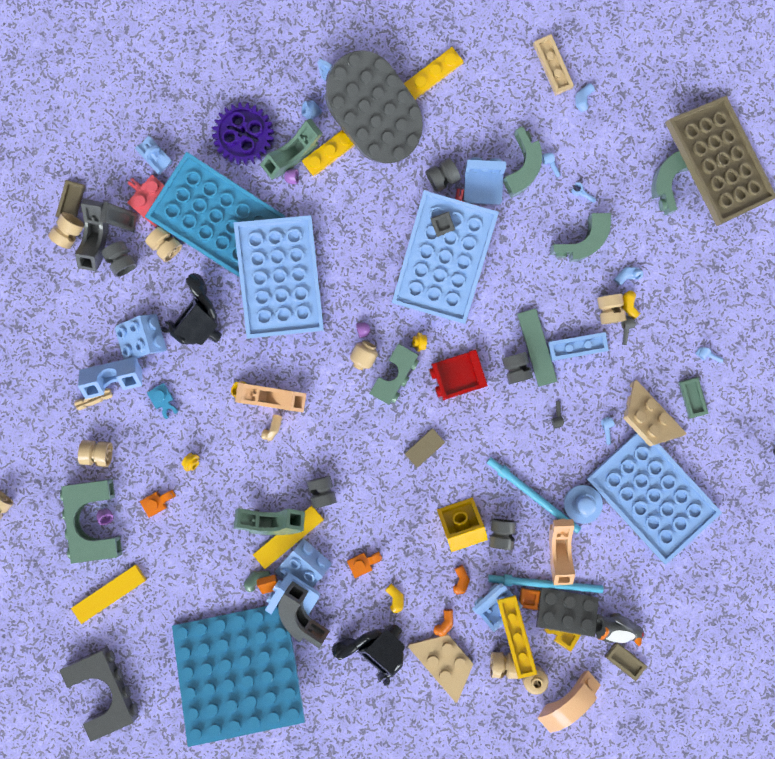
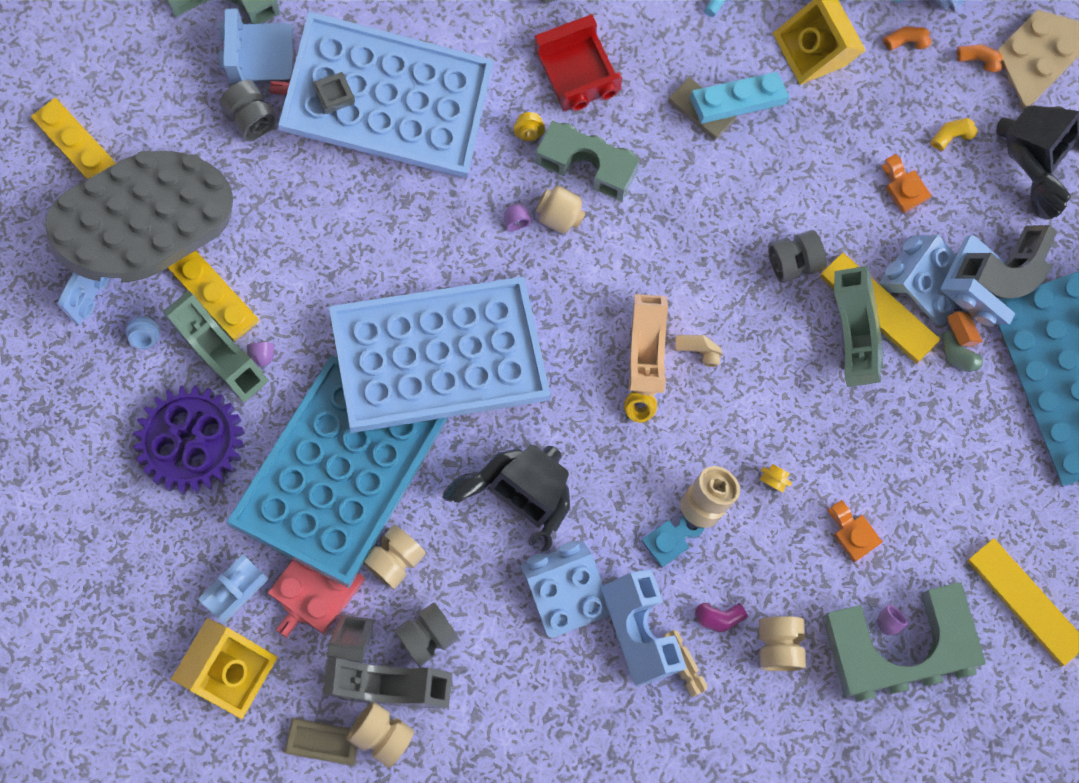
camera: 95 degrees left, 15 degrees down
(112, 148) = (224, 668): none -> yellow slope
(114, 421) = (719, 620): none -> magenta arm
(179, 422) = (710, 497): none -> tan wheel
(428, 470) = (739, 97): none -> medium azure plate

